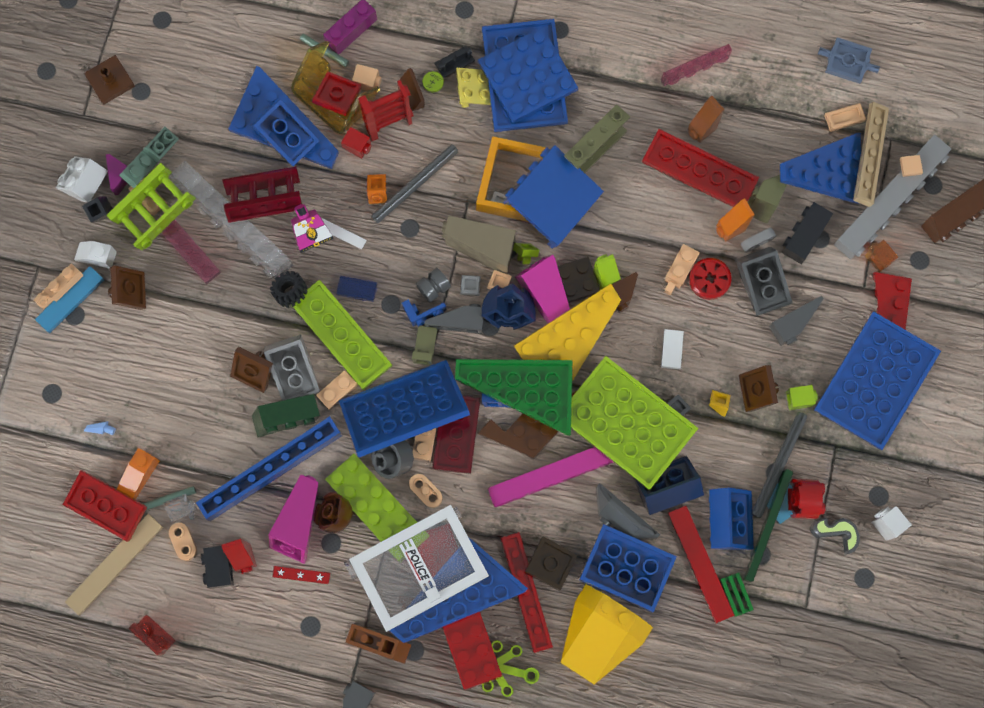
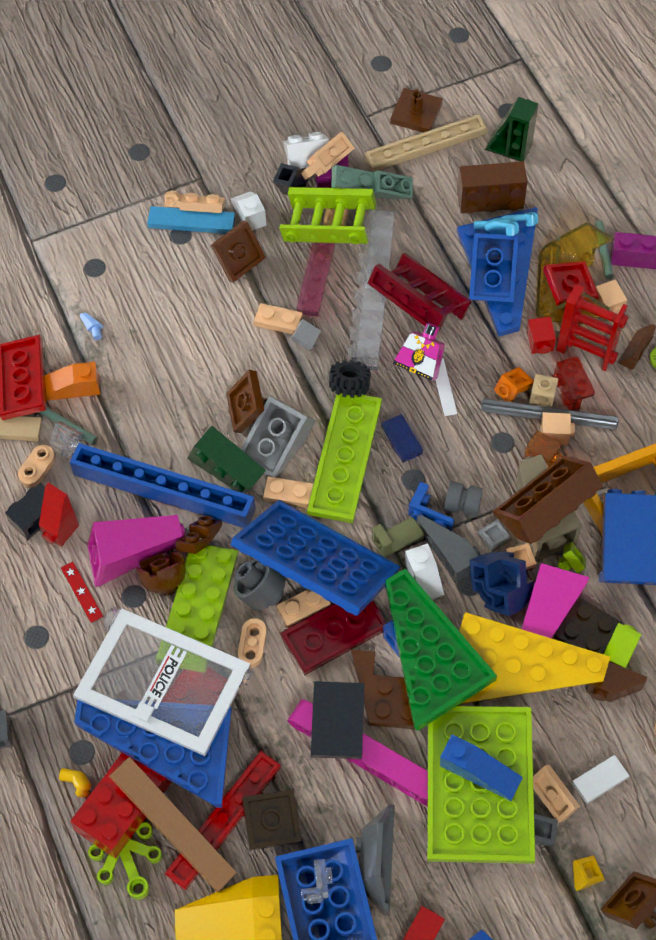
camera: 55 degrees right, 15 degrees down
(104, 170) = (328, 156): none -> light nougat hinge
(141, 95) = (425, 143): none -> tan tile
(188, 32) = (515, 131): none -> dark green wedge
(200, 300) = (277, 318): none -> light nougat plate
(220, 82) = (492, 187): none -> reddish brown brick
(229, 291) = (305, 334): none -> light grey tile
(259, 100) = (507, 224): none -> medium azure piece
(325, 469) = (200, 535): none -> reddish brown slope
(378, 643) = (62, 710): dark orange slope -> none
(398, 175) = (543, 390): none -> tan brick
(408, 152) = (573, 382): none -> clear red bracket
(430, 188) = (557, 426): none -> light nougat brick
(434, 665) = (78, 779): none -> yellow arm
(439, 209) = (545, 446): none -> clear orange brick
(462, 347) = (424, 570): none -> white slope
(484, 236) = (548, 498): none -> reddish brown slope
(511, 626) = (172, 824): none -> medium nougat tile
(521, 476) = (337, 720): none -> black tile
(617, 560) = (323, 877): none -> clear bracket
(621, 416) = (479, 767): none -> blue slope
(662, 383) = (554, 794): none -> light nougat plate
(675, 486) = (452, 887): dark blue slope -> none

